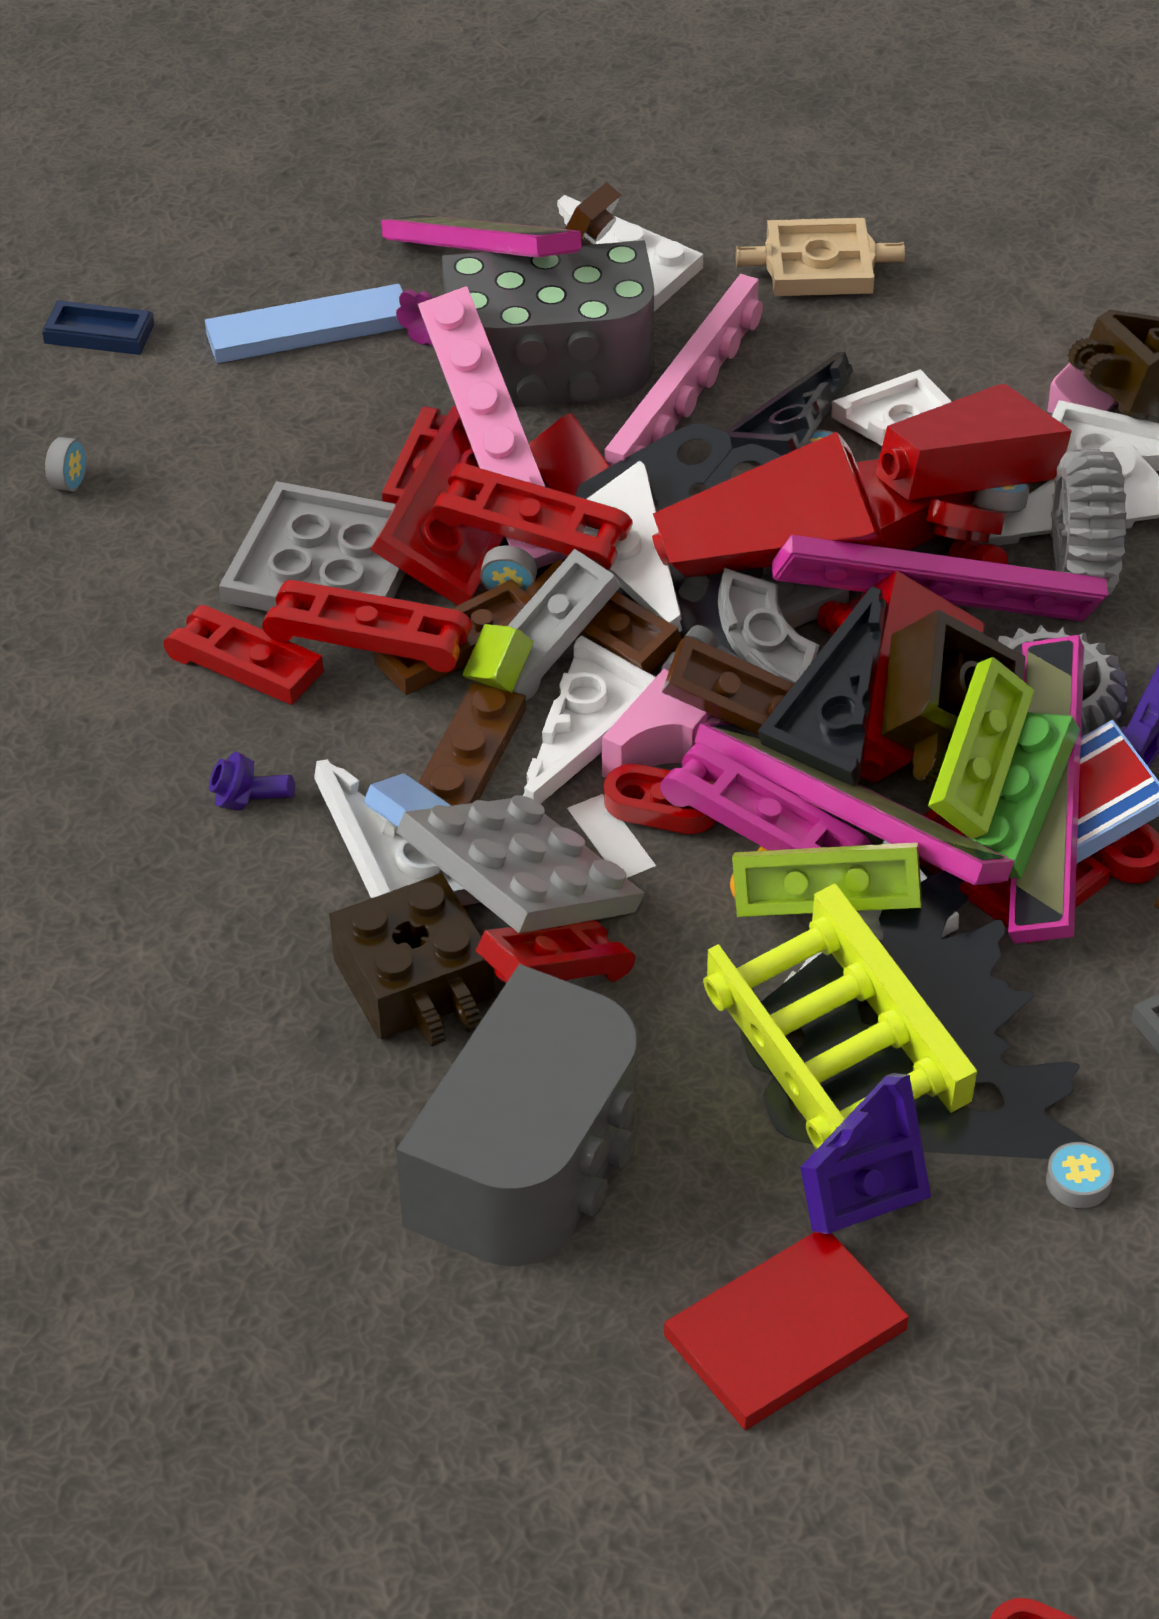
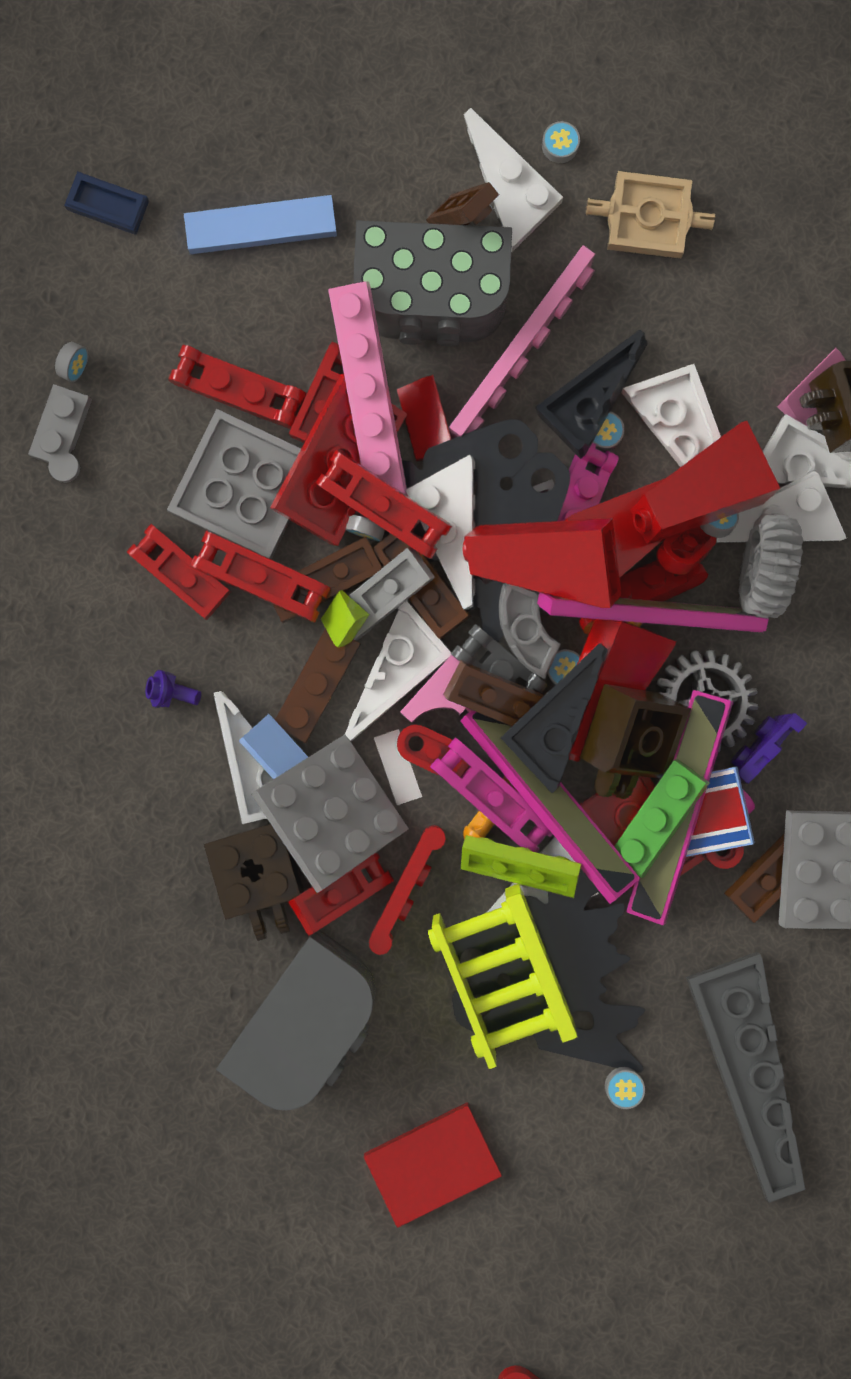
camera: 10 degrees right, 40 degrees up
(53, 539) = (60, 431): none -> light grey hinge
(262, 463) = (237, 387): none -> red plate
(410, 316) = (342, 243): magenta plant -> none
(482, 235) = (392, 189): dark pink tile -> none
(663, 935) = (399, 903): none -> red plate
(687, 214) = (560, 142): none -> tile
(869, 1161) = (499, 1083): dark purple wing -> none
(981, 748) = (639, 799): lime plate -> none

